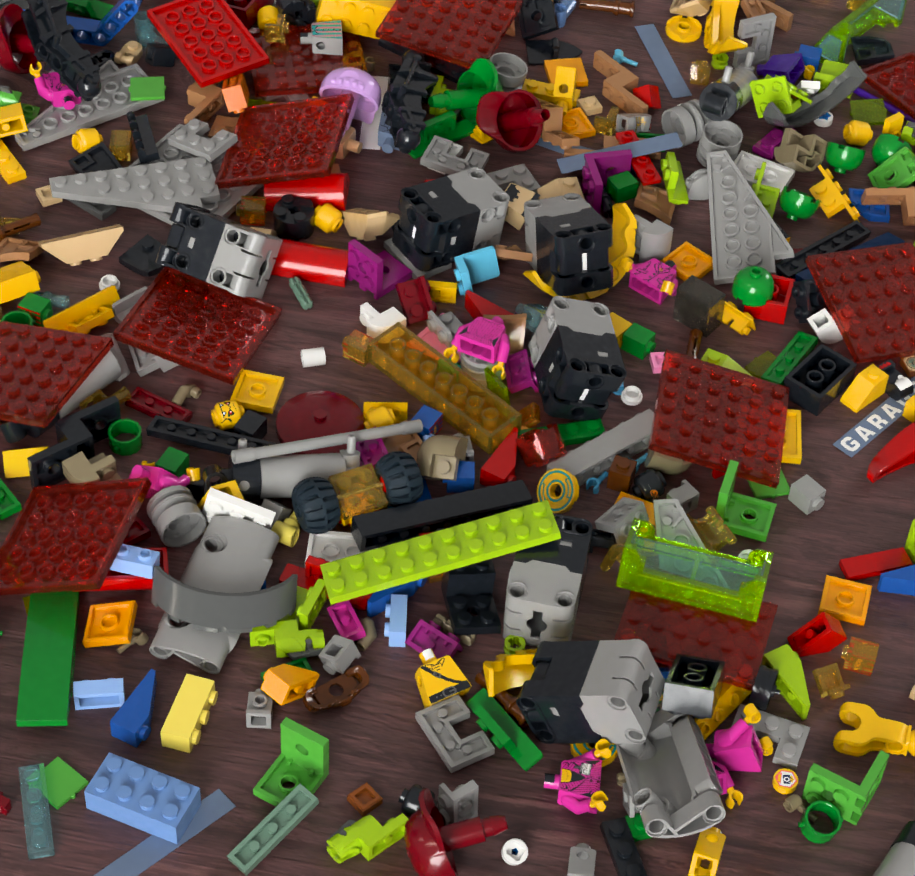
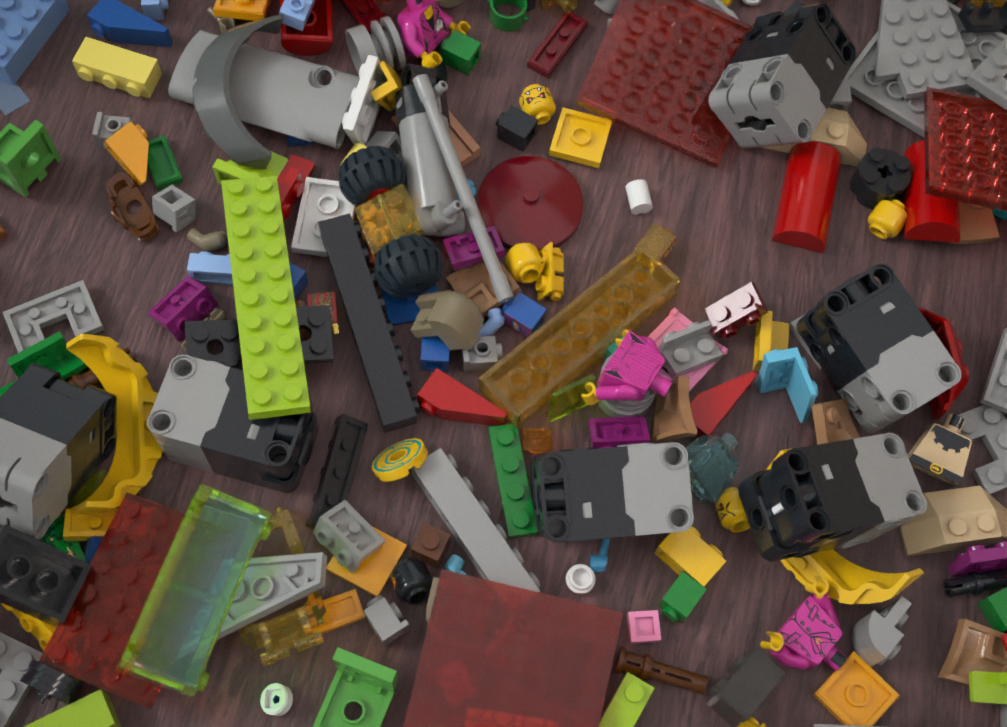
camera: 90 degrees right, 20 degrees up
(186, 391) = (576, 63): dark tan arm -> none
(199, 435) = (496, 89): black plate -> none
(252, 210) = (893, 133): clear yellow brick -> none
(289, 640) = (196, 167): lime plate -> none
(300, 293) = (753, 188): sand green axle -> none
(346, 621) = (209, 218): dark pink plate -> none
(368, 223) = (866, 250): tan wedge -> none
(368, 269) = (784, 262): magenta bracket -> none
(379, 322) = (696, 275): white brick -> none
(439, 679) = (119, 305): yellow torso -> none
(540, 445) = (472, 442): clear red brick -> none
(596, 482) = (426, 516): dark azure hand -> none

